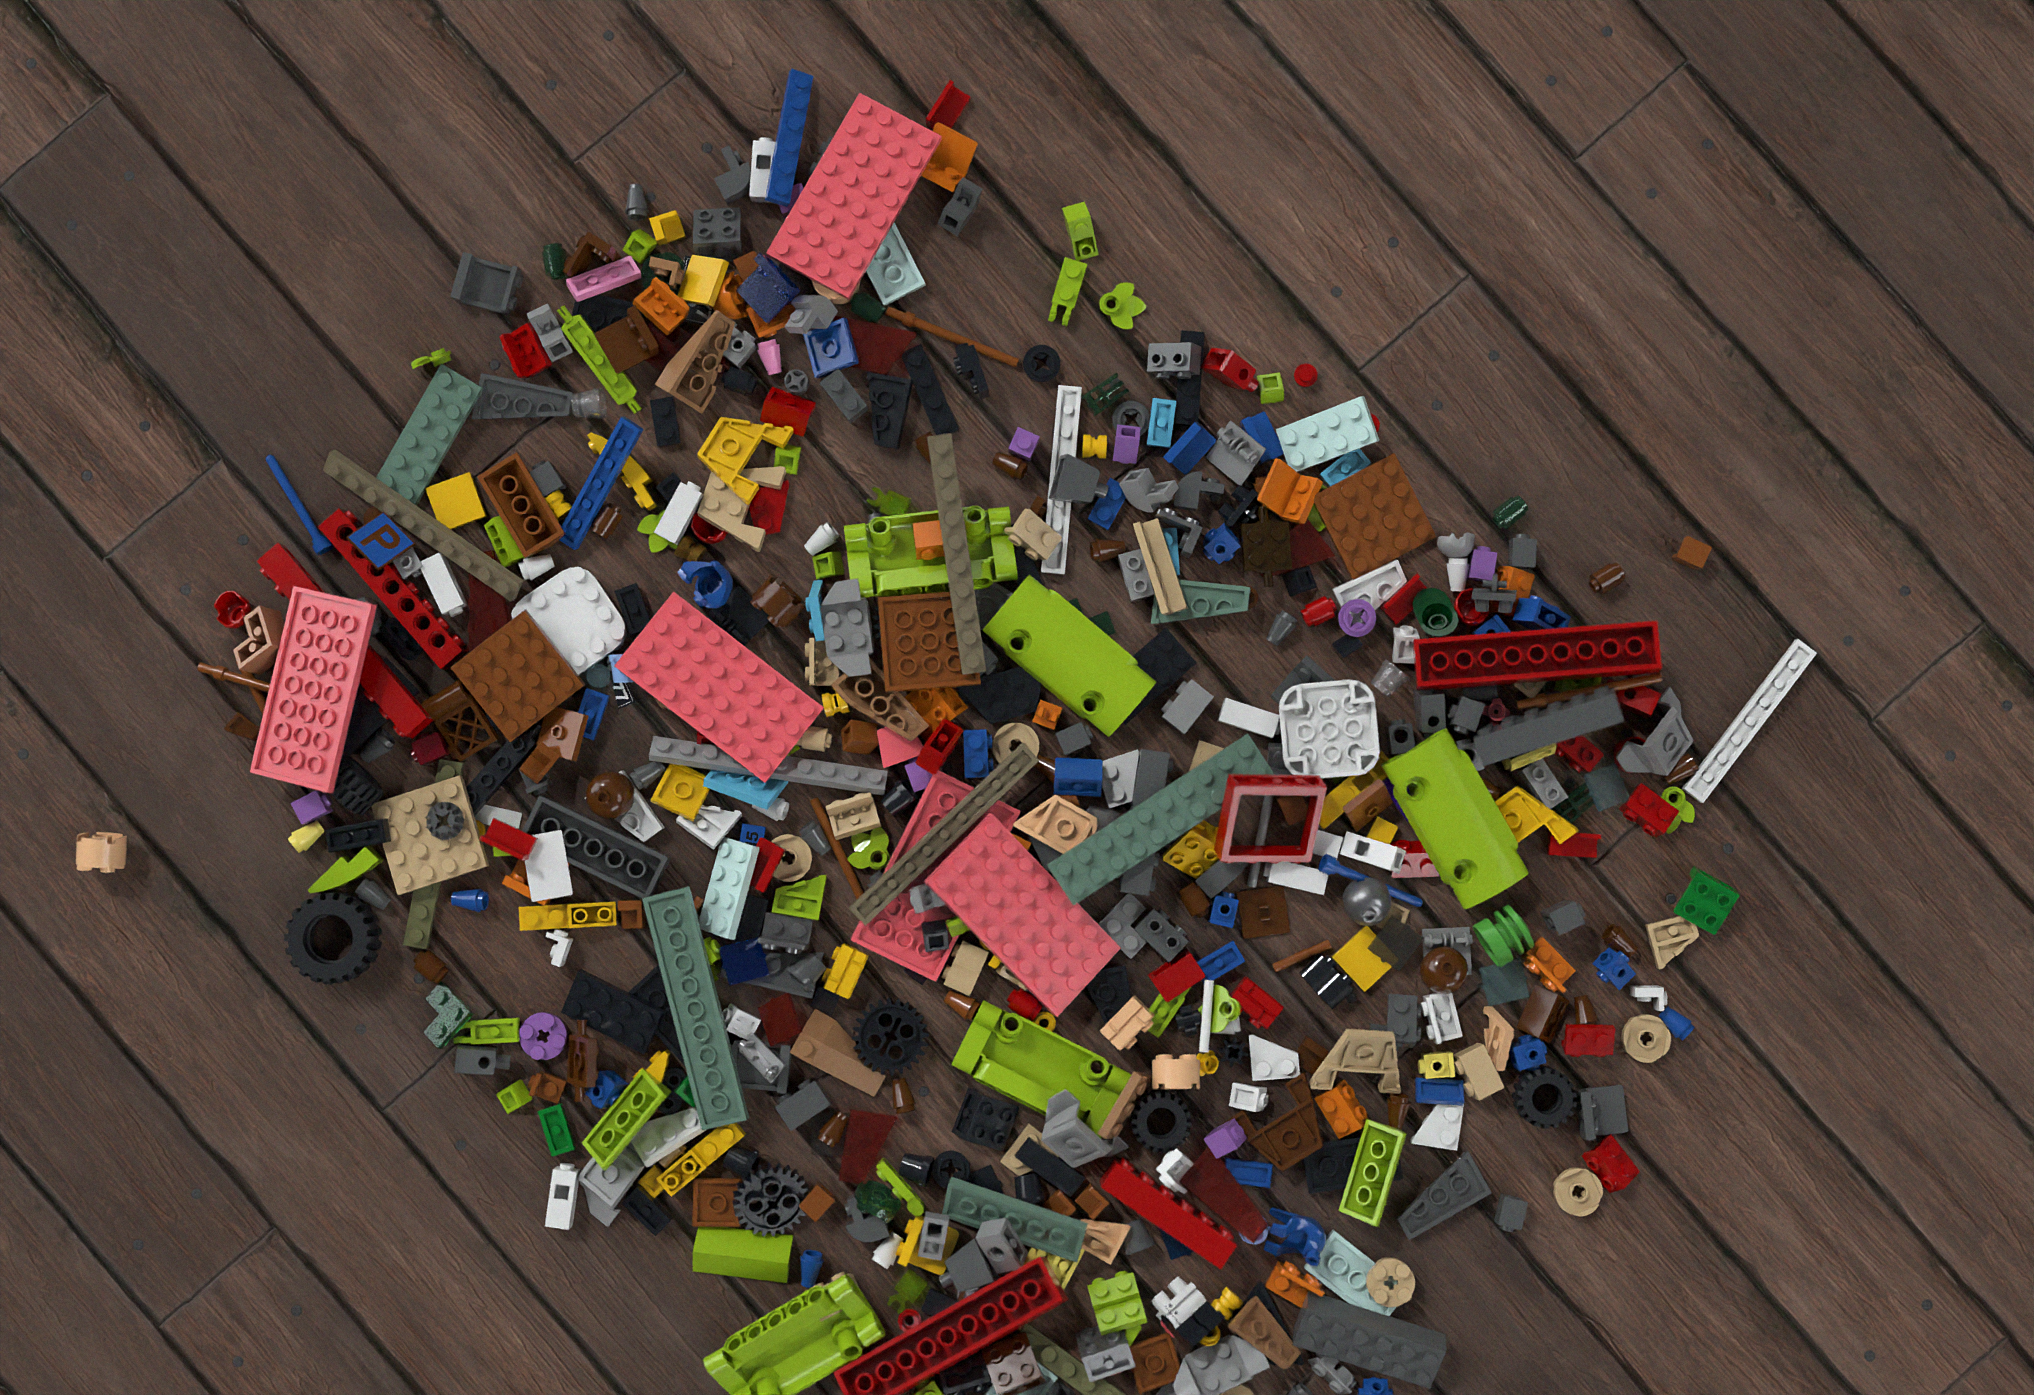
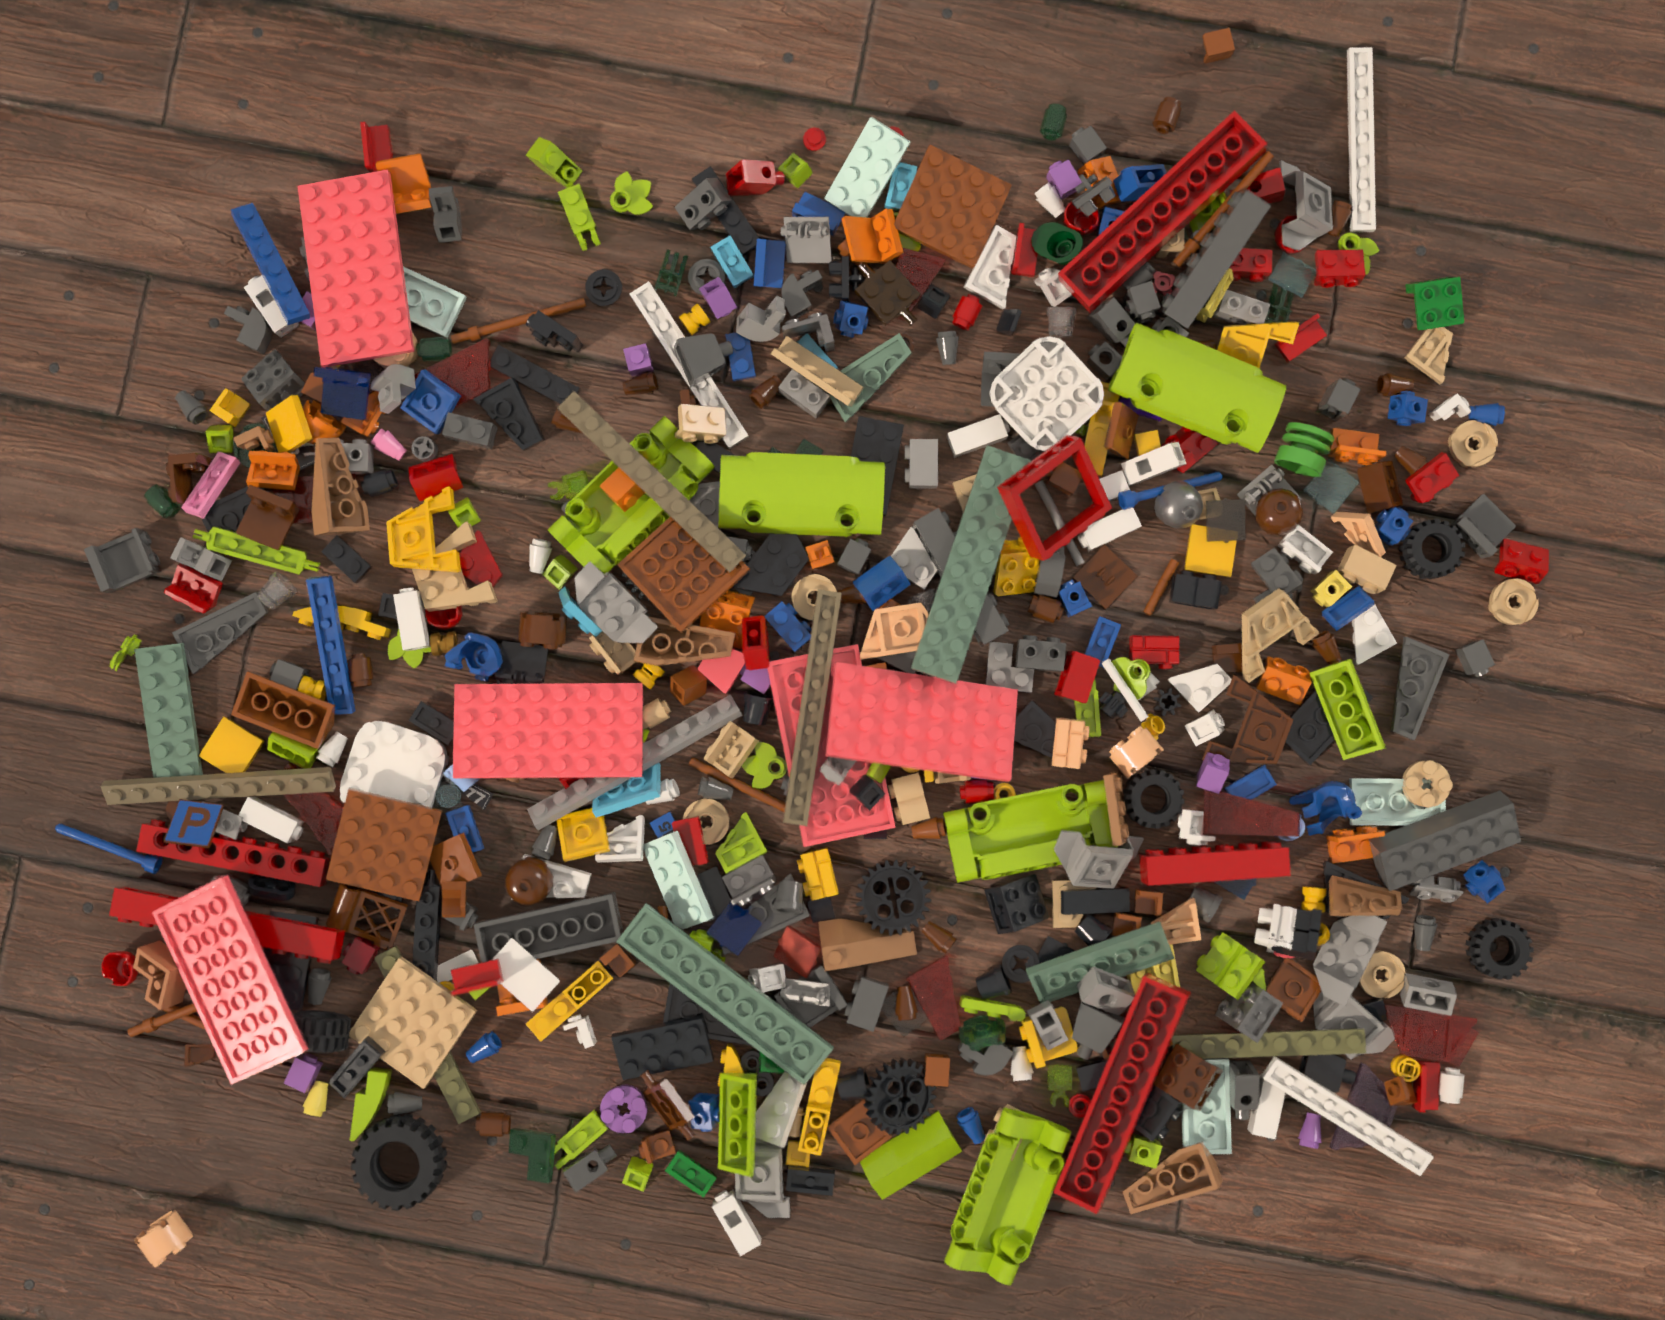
camera: 35 degrees left, 0 degrees up
(455, 820) = (422, 995): dark grey gear -> none
(1368, 617) = (1007, 285): medium lavender gear -> none
(1456, 547) = (1032, 180): light grey hair -> none

